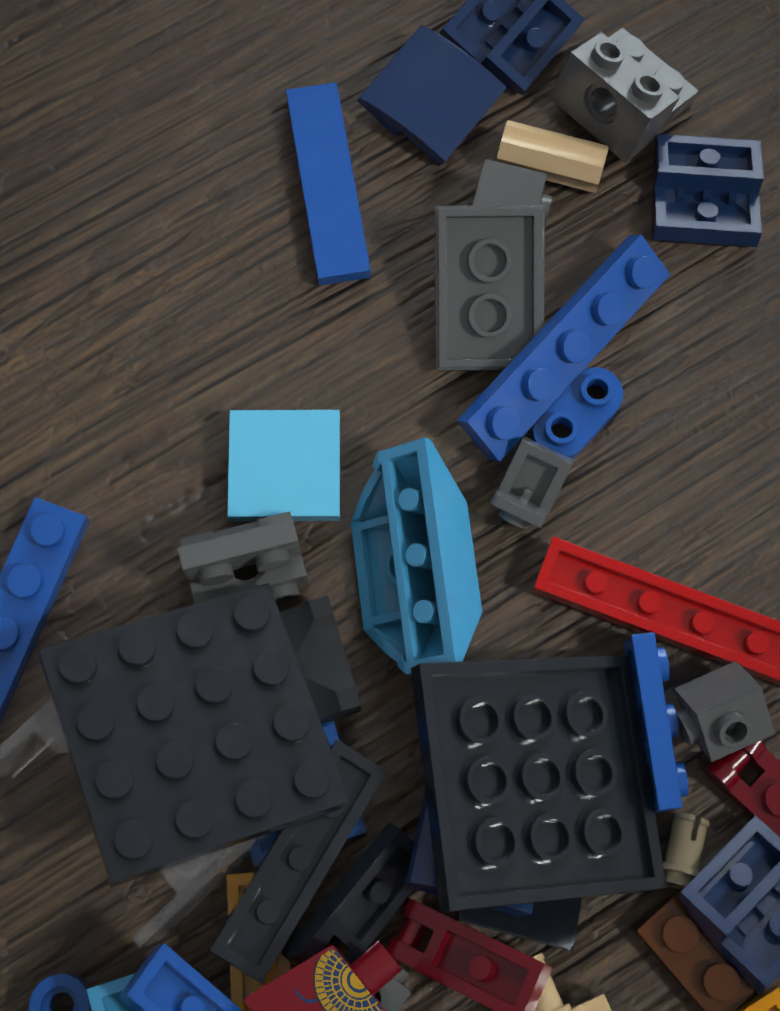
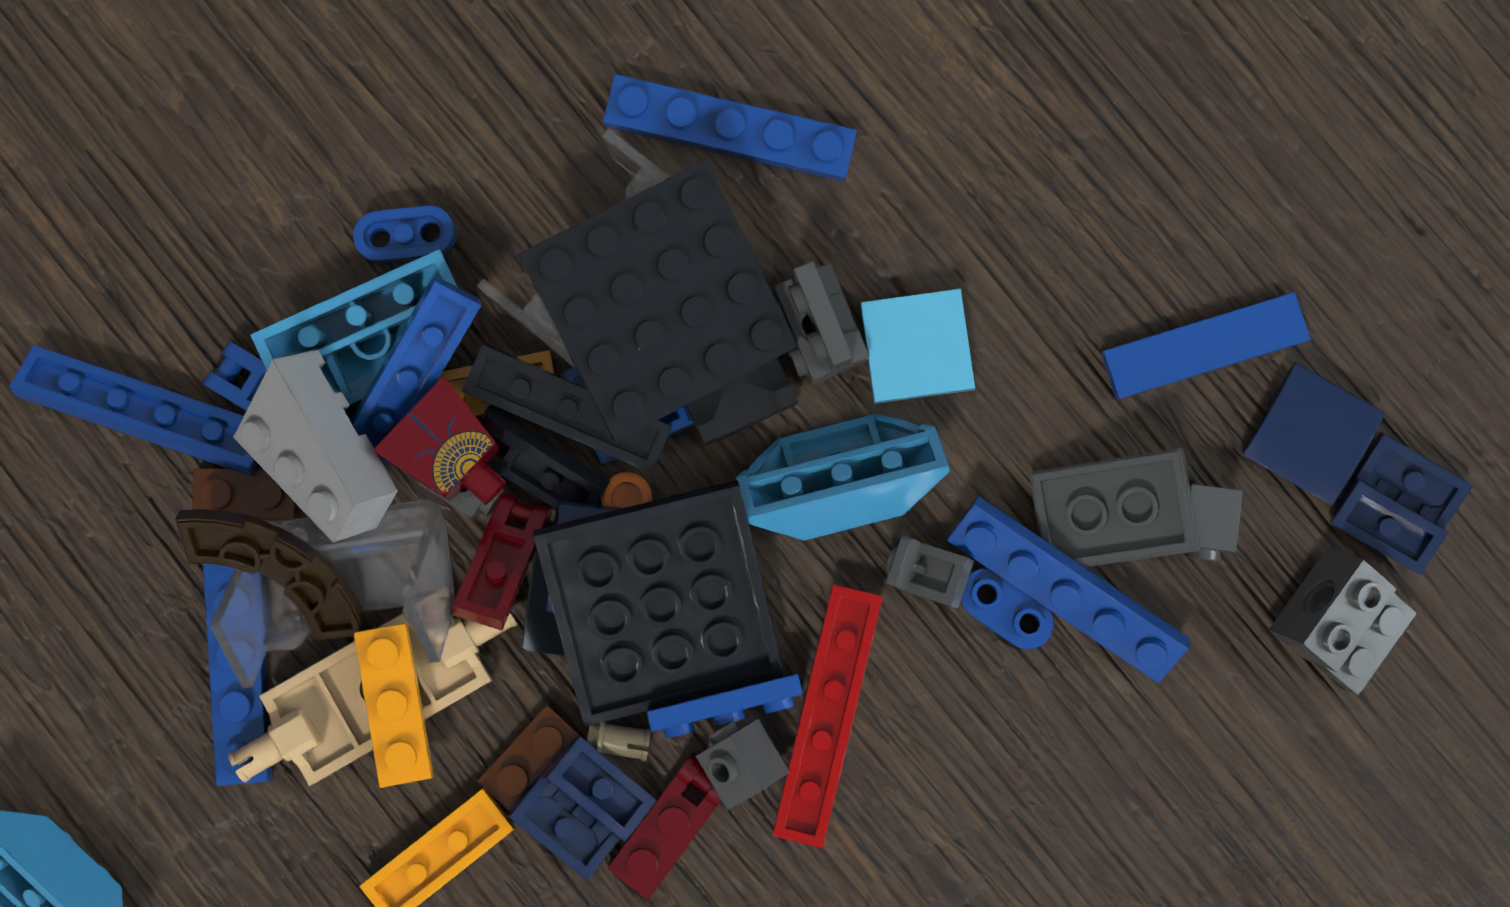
camera: 85 degrees right, 10 degrees up
(402, 804) = (626, 490): none -> orange tile
(560, 156) = (1263, 556): tan axle -> none
(707, 190) = (1254, 712): dark blue slope -> none

